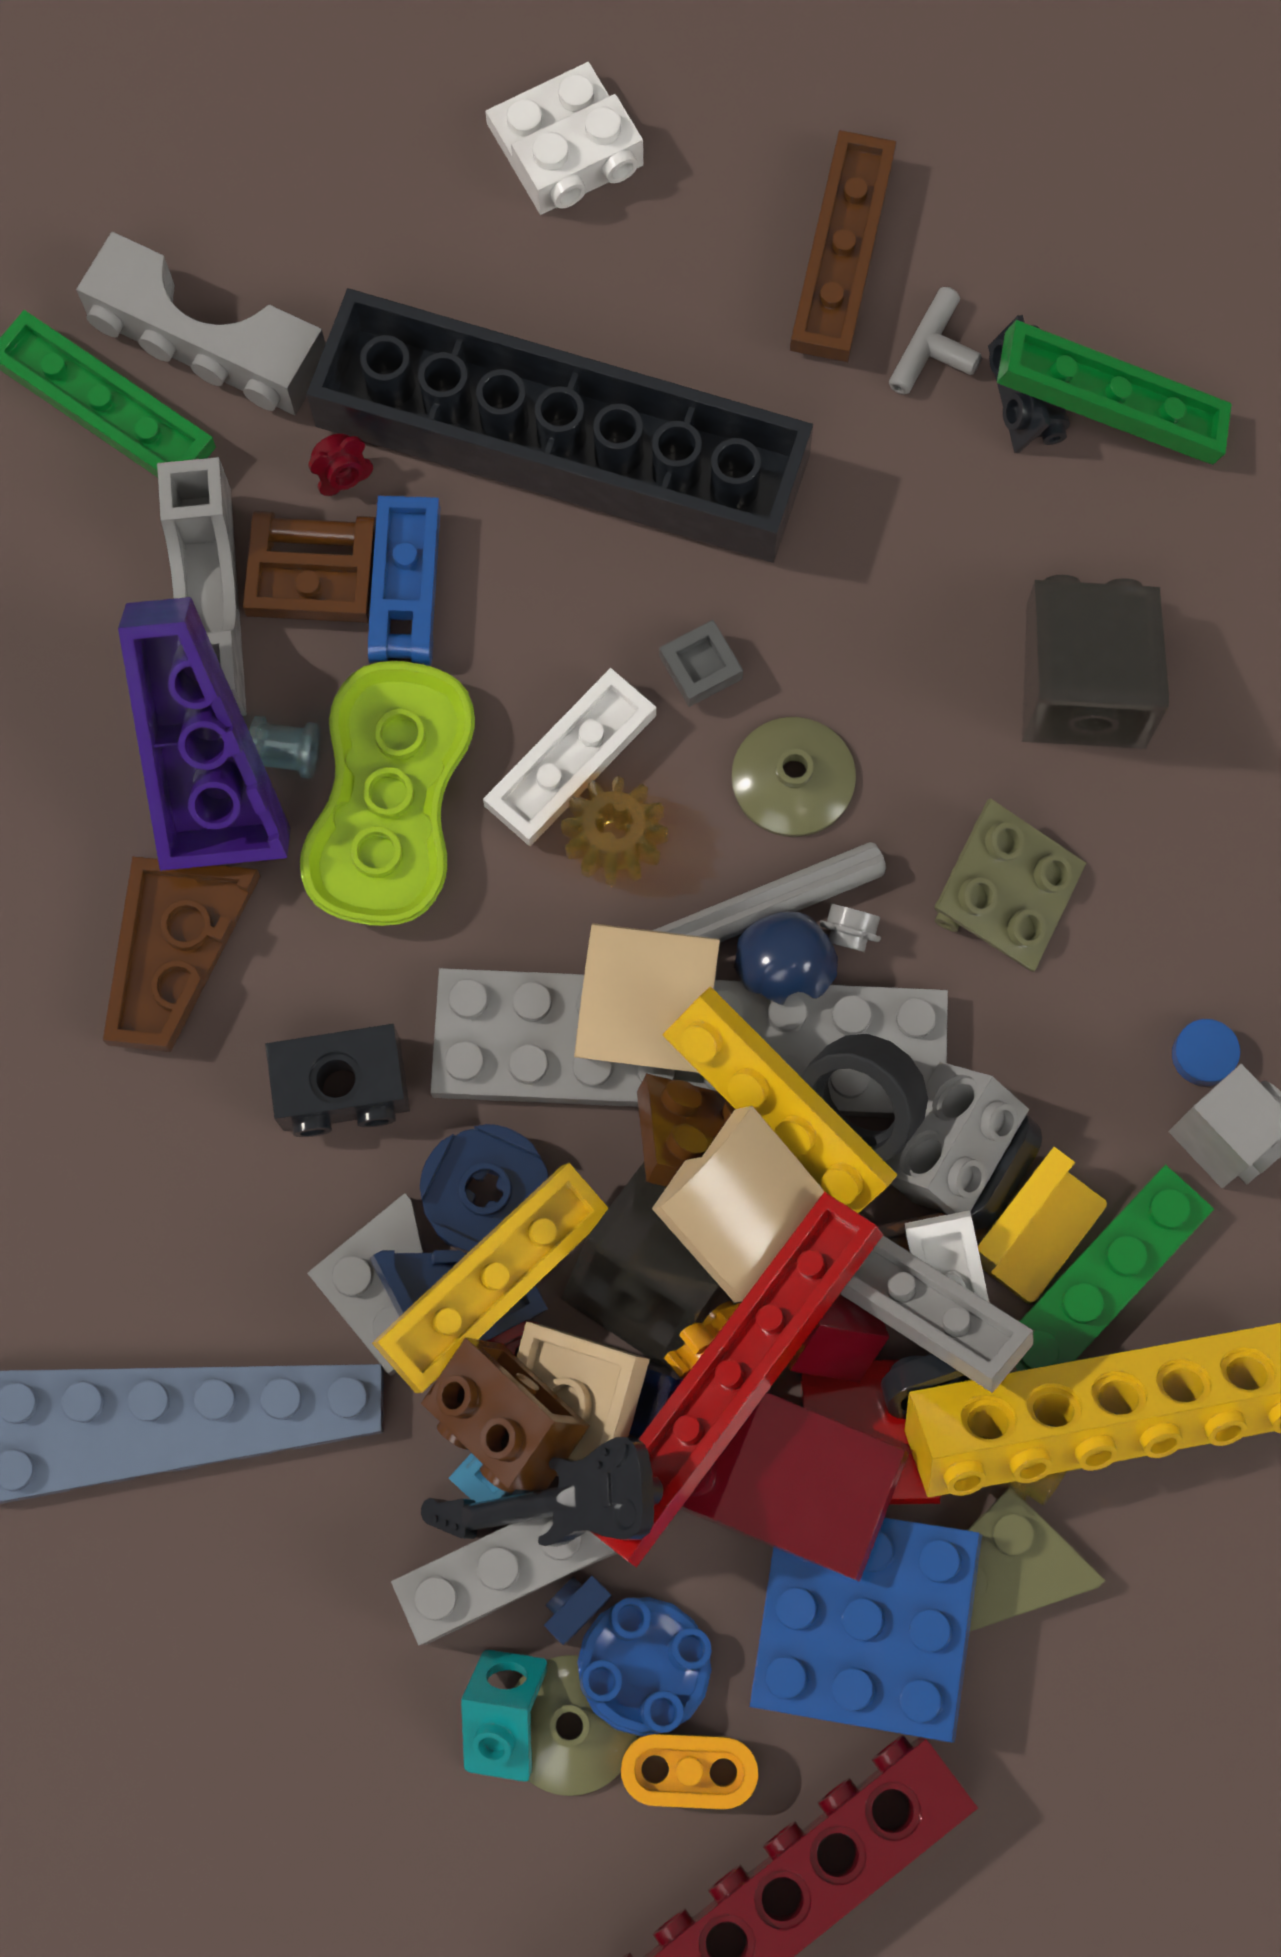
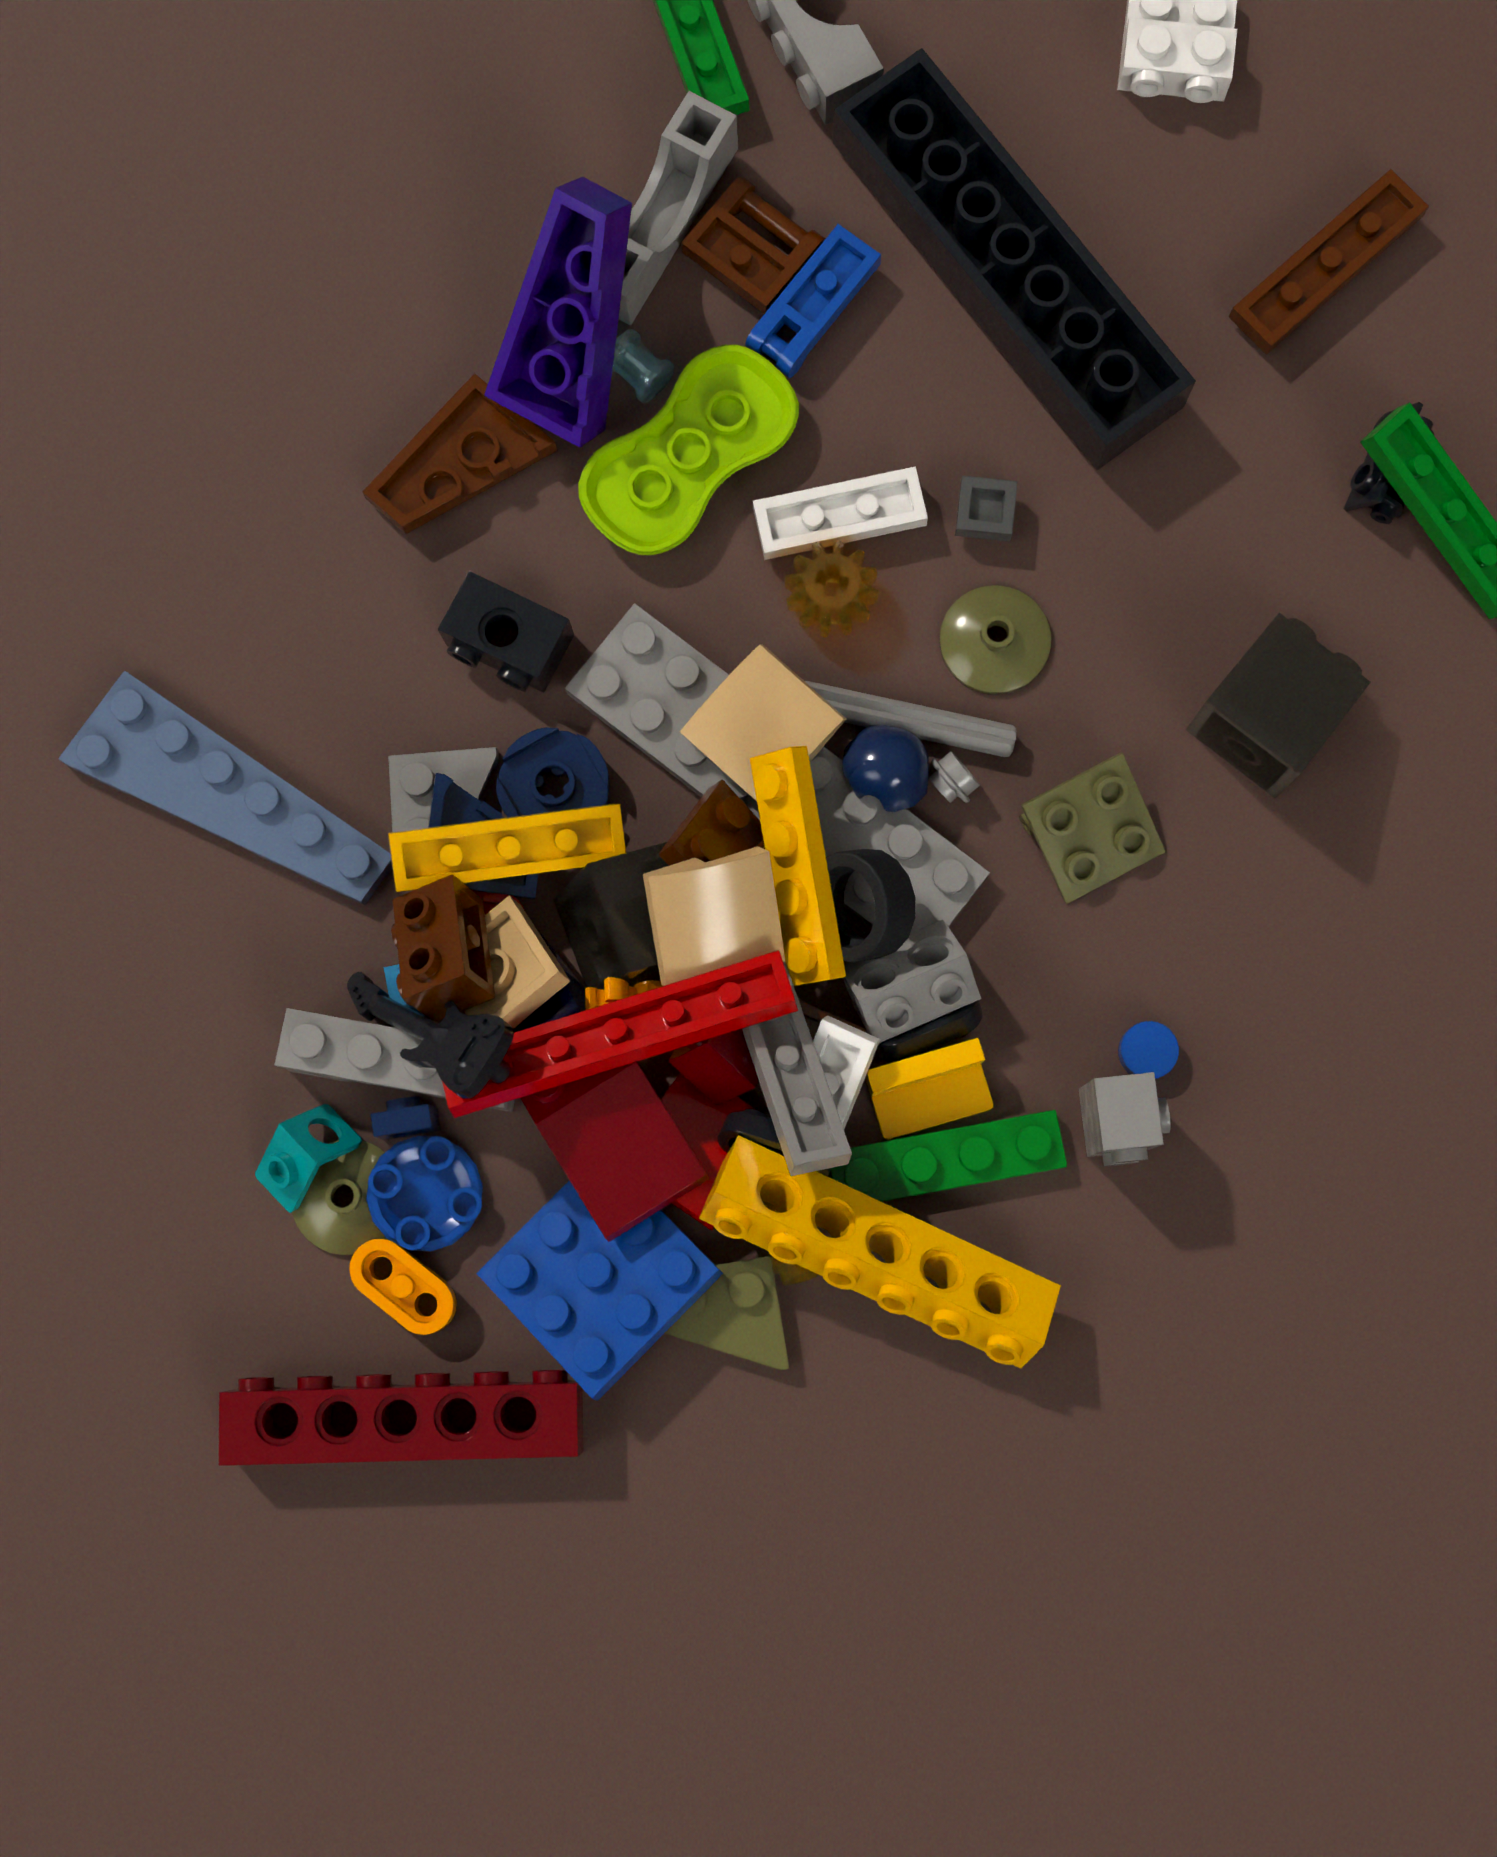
camera: 40 degrees right, 5 degrees up
(339, 463) = (828, 181): dark red plate -> none
(929, 342) = (1341, 381): light grey piece -> none

